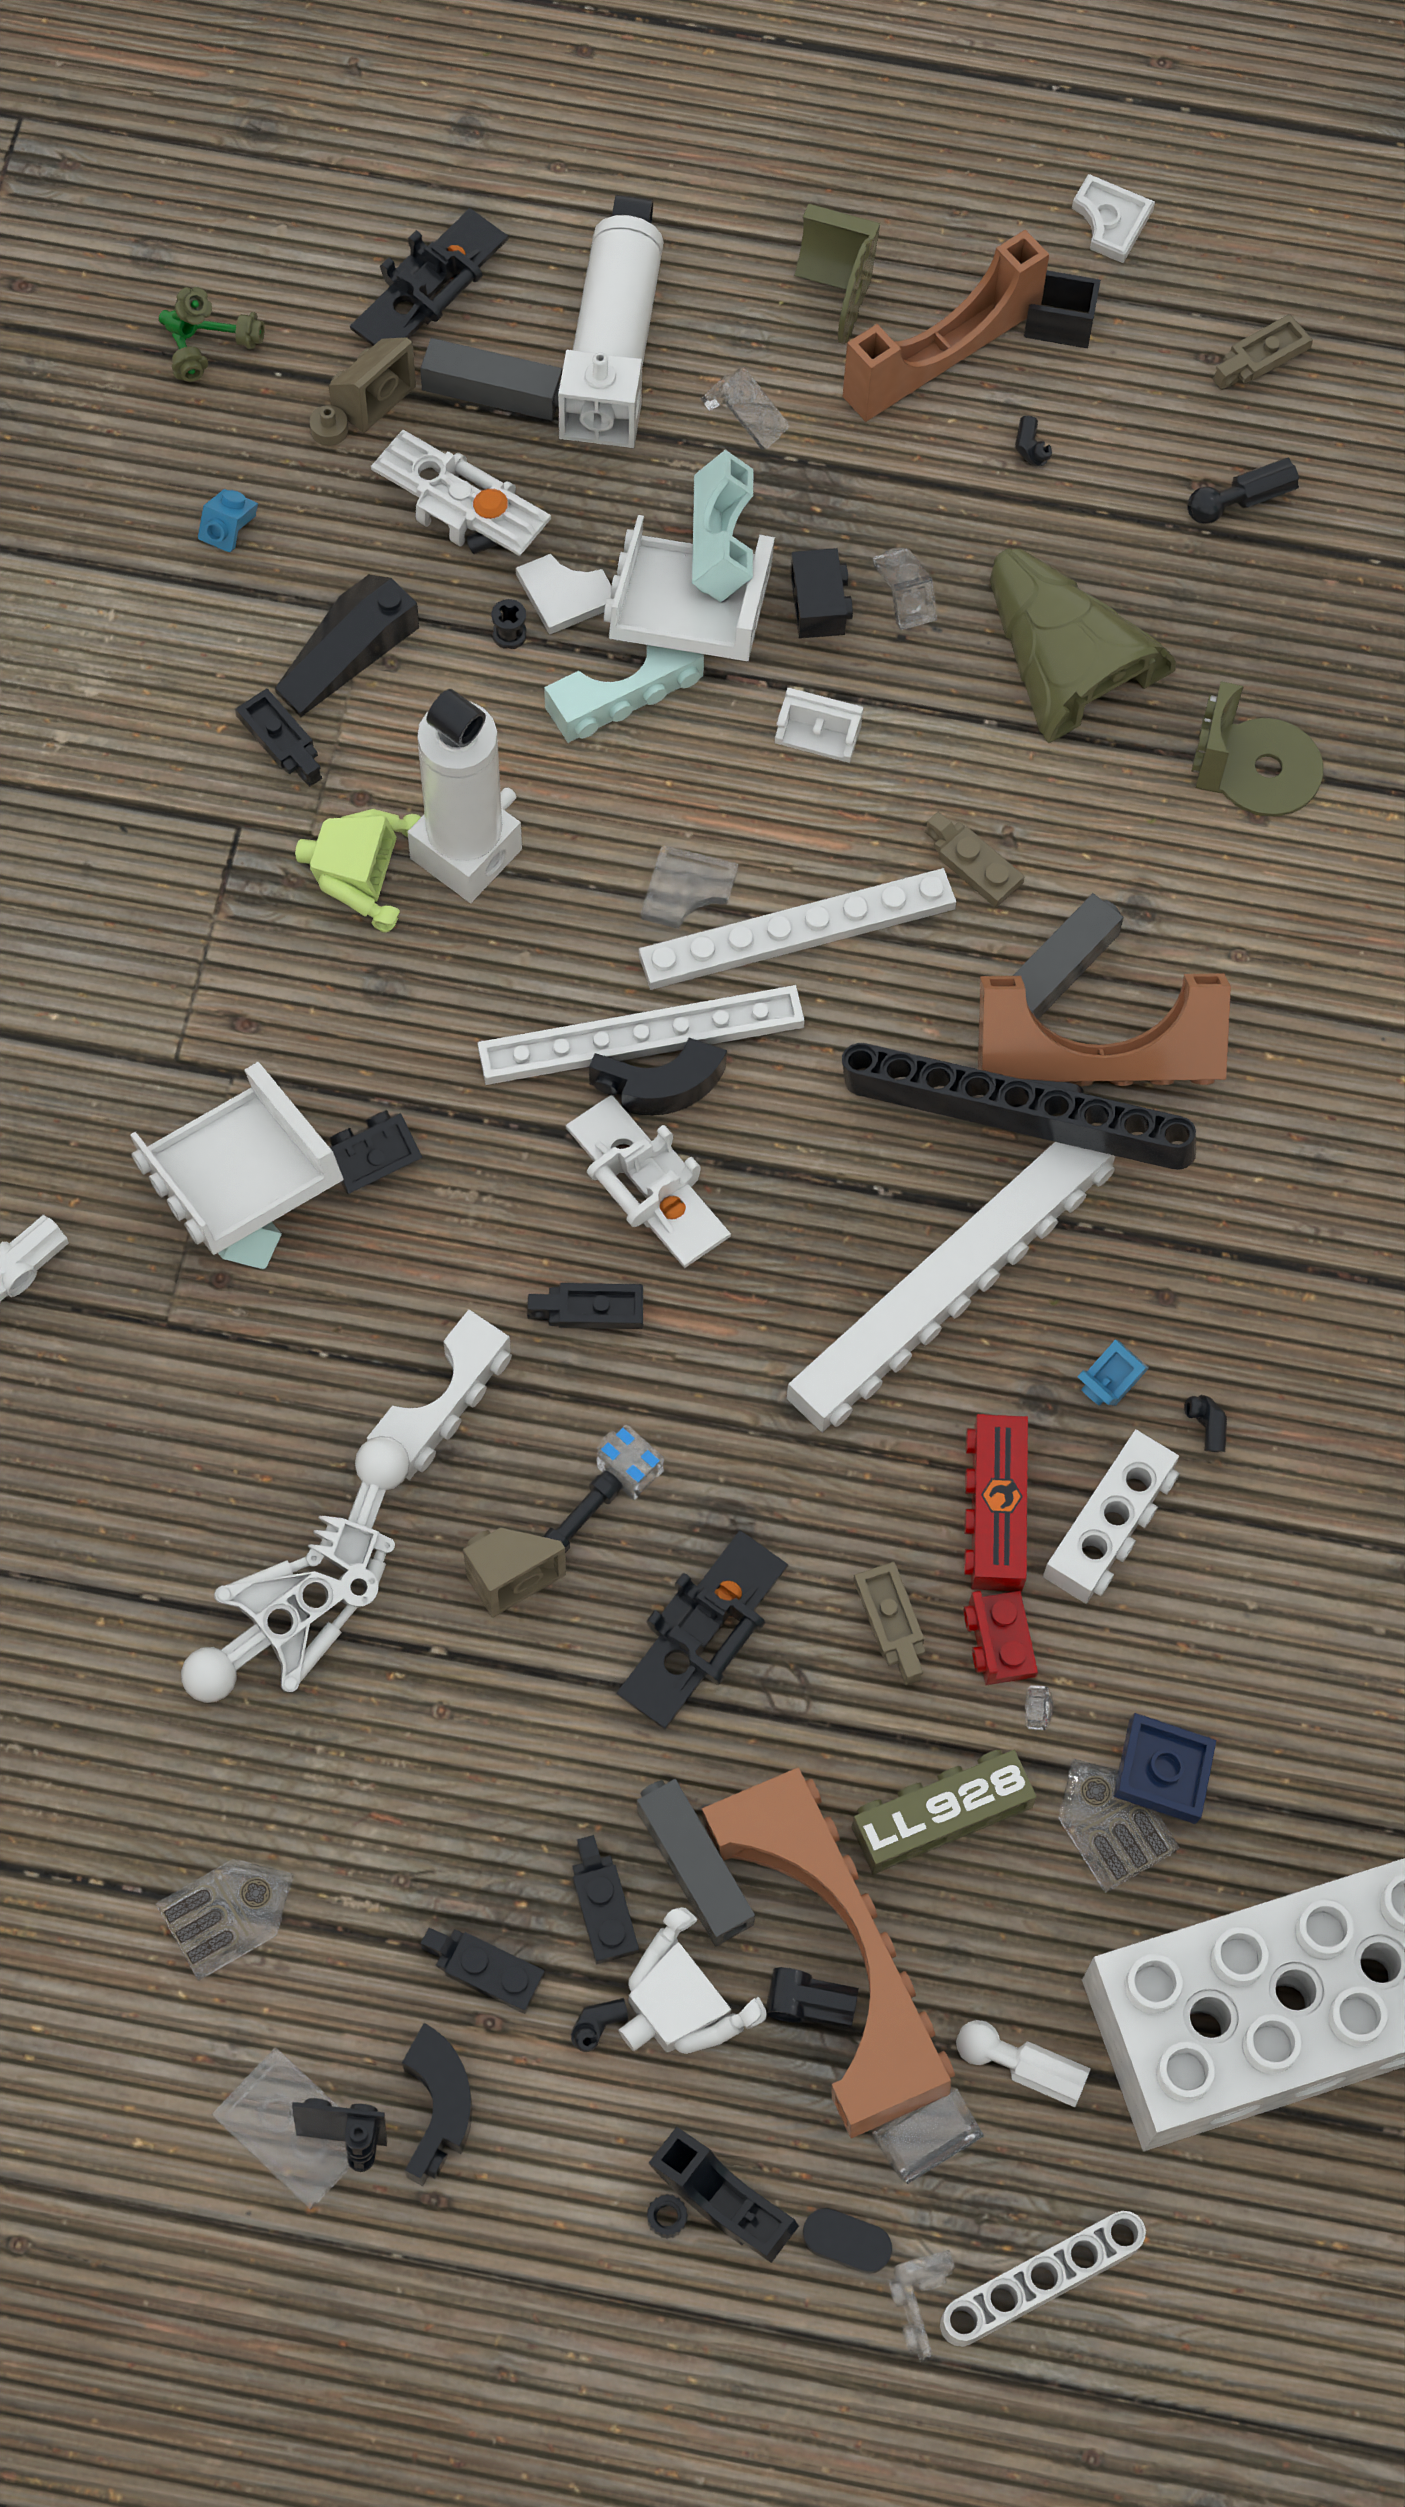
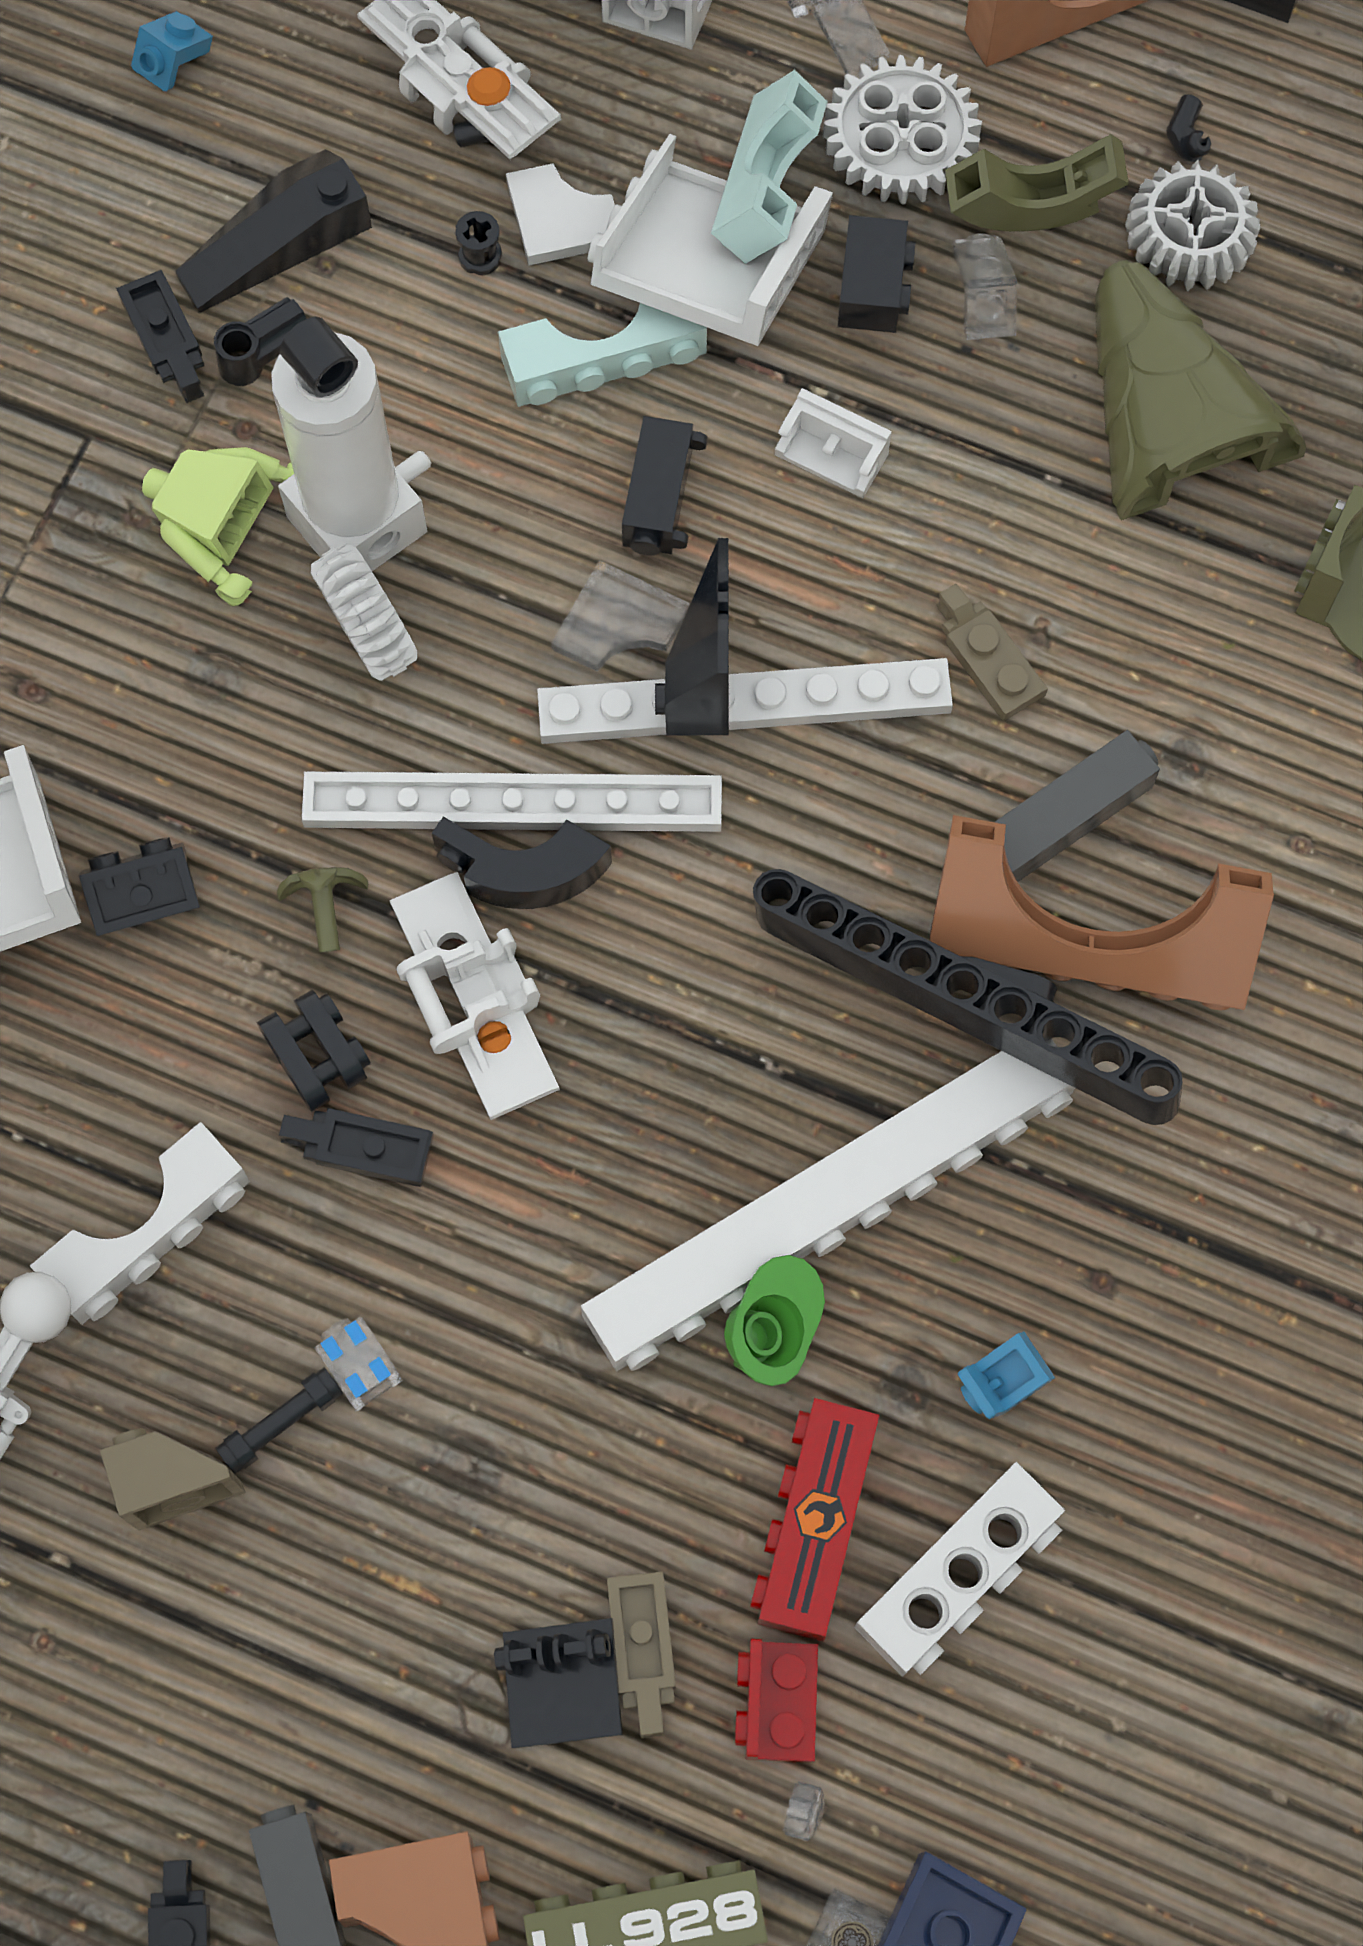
camera: 15 degrees right, 5 degrees up
(358, 727) = (258, 338): none -> black piece
(497, 913) = (364, 611): none -> white gear
(510, 1121) = (320, 883): none -> olive plant
(537, 1220) = (344, 1057): none -> black brick
(692, 1619) = (383, 1594): black piece -> none
(695, 781) = (659, 486): none -> black brick
(764, 899) = (698, 663): none -> black wedge
(814, 480) = (900, 128): none -> white gear
(839, 1656) = (561, 1683): none -> black hinge
(928, 513) = (1035, 196): none -> olive arch
(934, 1367) = (776, 1320): none -> bright green piece
(1068, 501) = (1217, 213): none -> white gear
(1212, 1418) = (1123, 1461): black arm -> none

